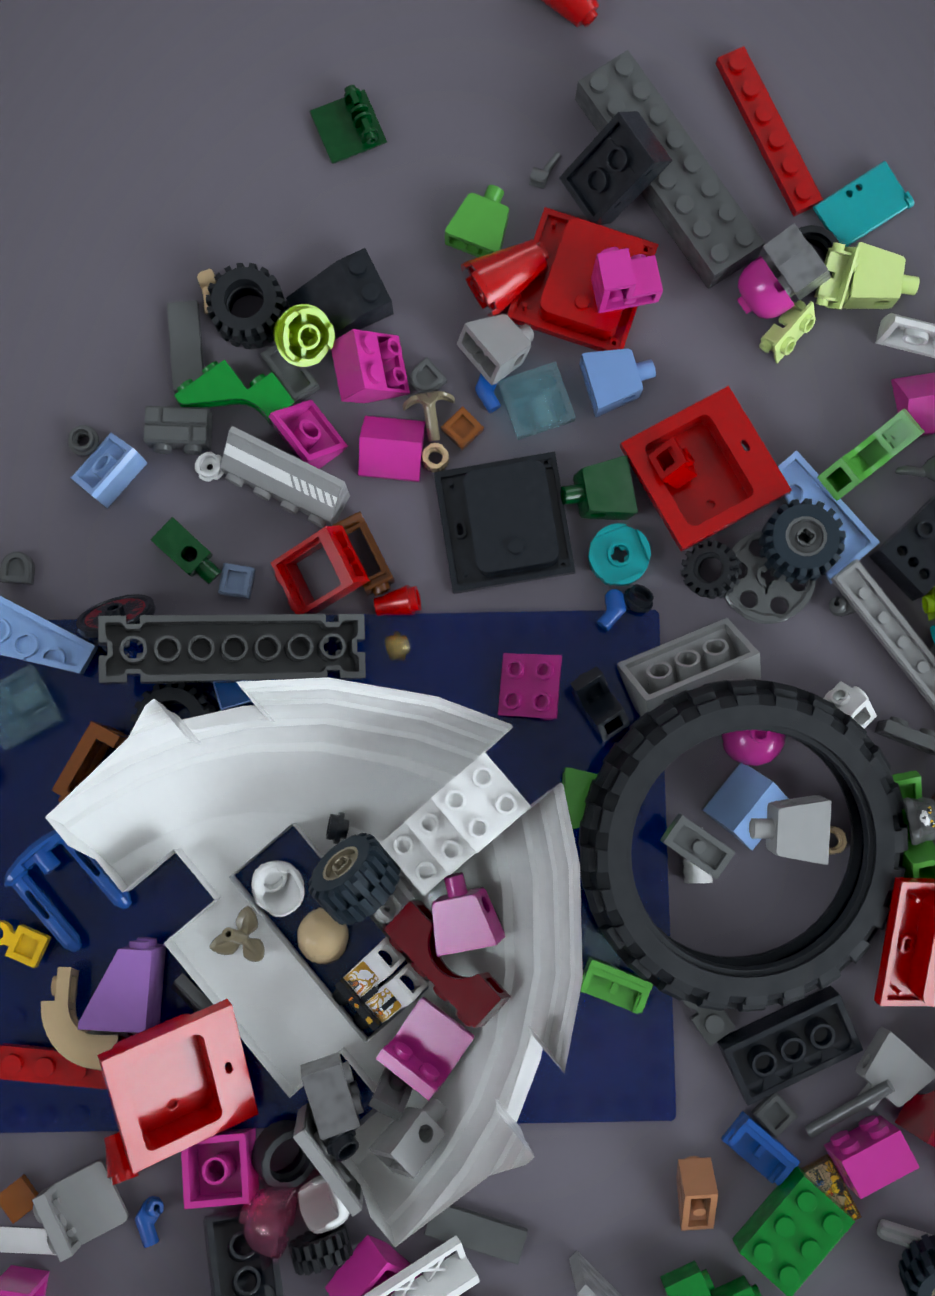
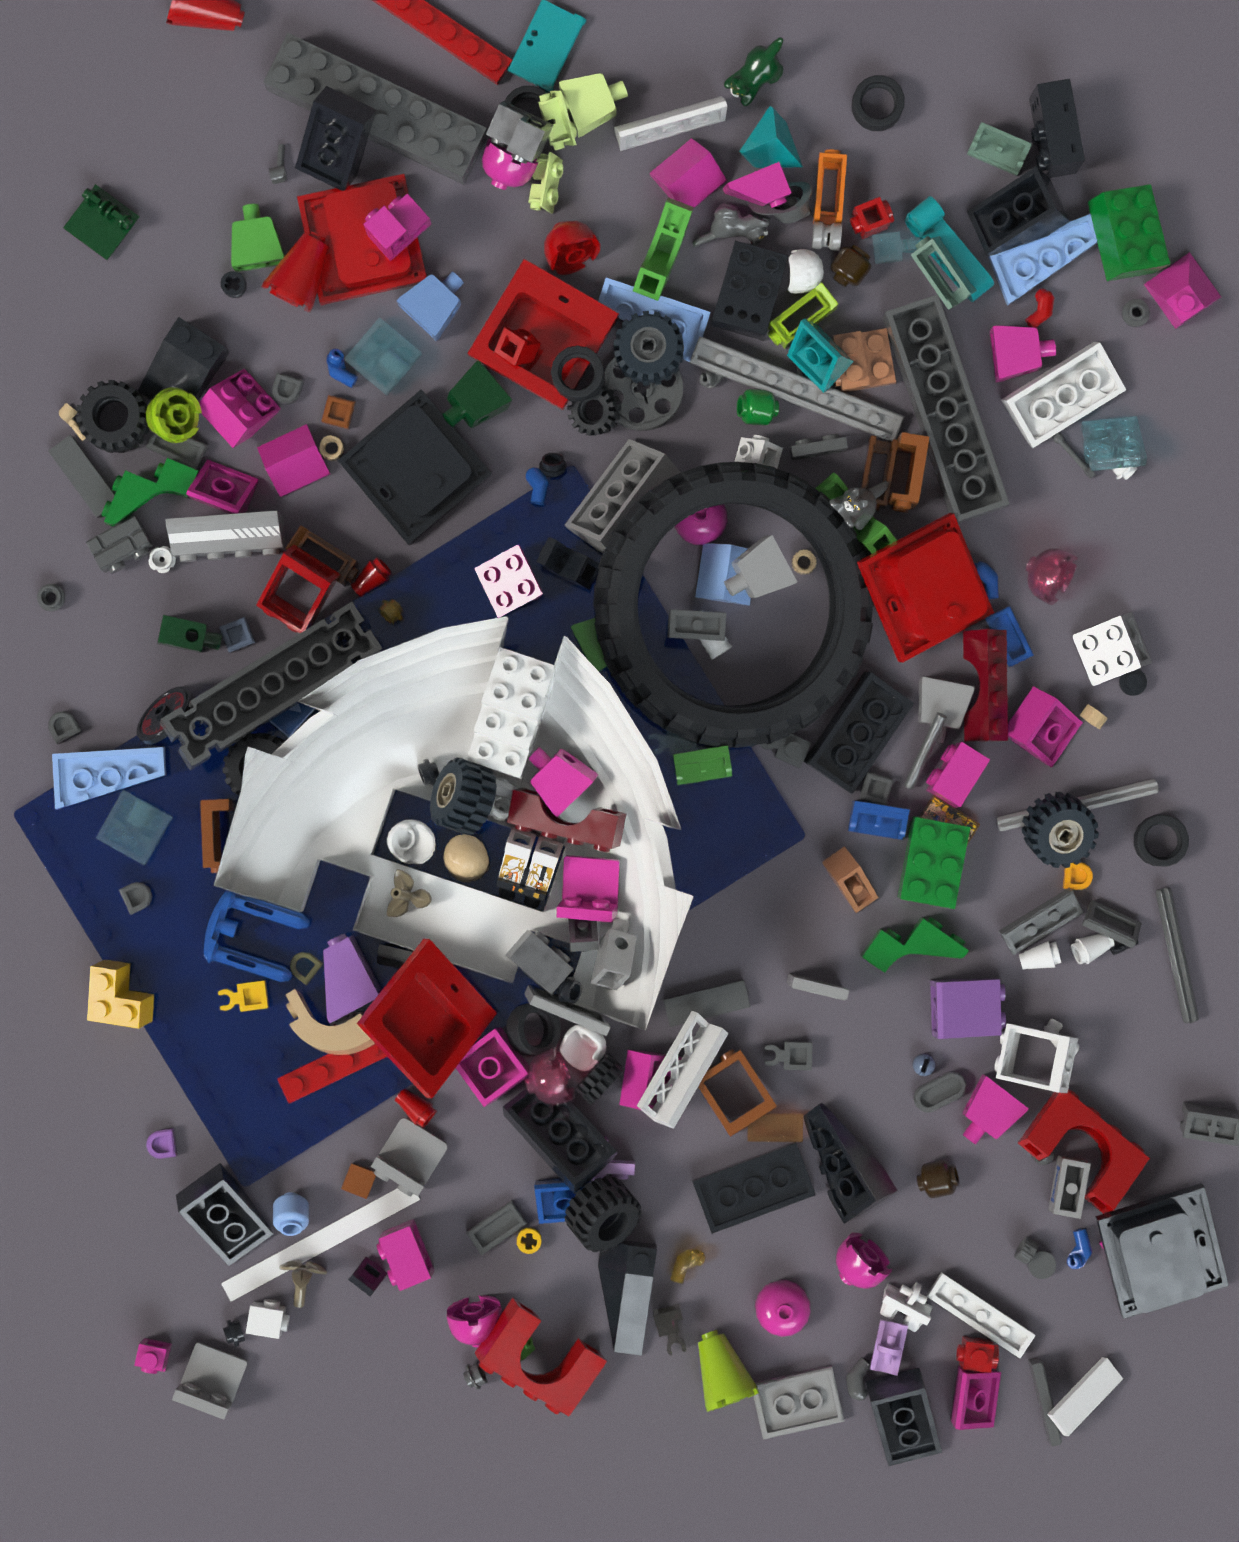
camera: 30 degrees left, 5 degrees up
(87, 945) = (318, 964): none -> olive tile
(109, 470) = (85, 608): light blue slope -> none
(146, 1218) = (461, 1137): blue arm -> none
(428, 401) = (300, 407): dark tan plant -> none
(429, 258) = (235, 276): none -> black bush
(495, 345) = (326, 333): light grey torso -> none
(625, 538) = (533, 437): teal plate -> none
(728, 501) = (577, 352): none -> black tyre
(779, 401) = (569, 246): none -> red cylinder
(873, 661) = (757, 407): none -> green head

